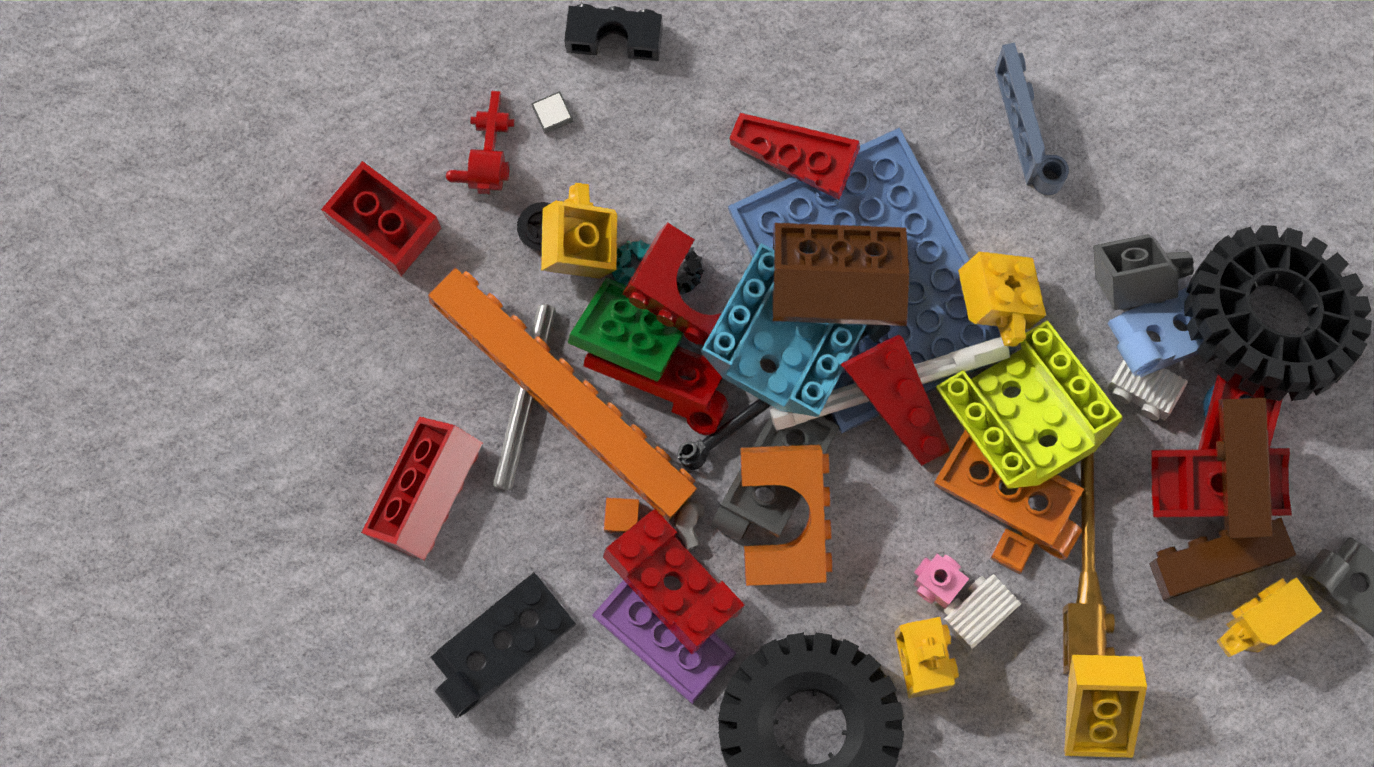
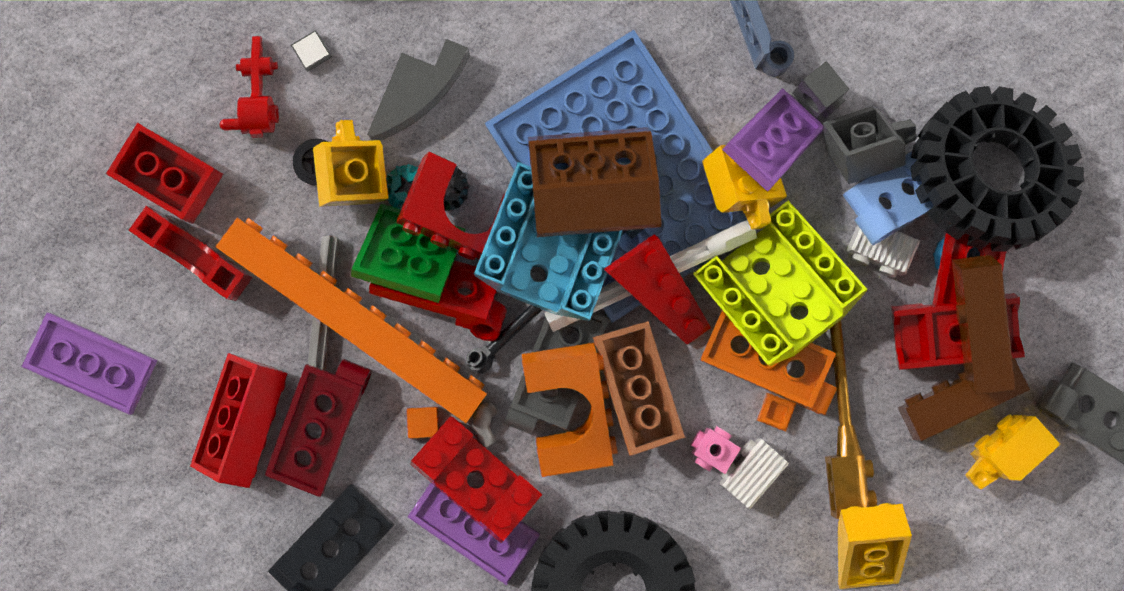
camera: 10 degrees left, 10 degrees up
(269, 410) = (89, 363): none -> medium lavender tile
(396, 305) = (191, 253): none -> red arch
(544, 468) = (345, 391): none -> dark red hinge
(660, 163) = (417, 89): none -> dark grey slope
(804, 153) = (548, 65): red wing -> none
(864, 500) = (639, 388): none -> nougat slope
(925, 657) = (709, 524): yellow hinge -> none
(1038, 254) = (774, 139): none -> medium lavender tile
(1094, 212) = (821, 91): none -> dark grey brick

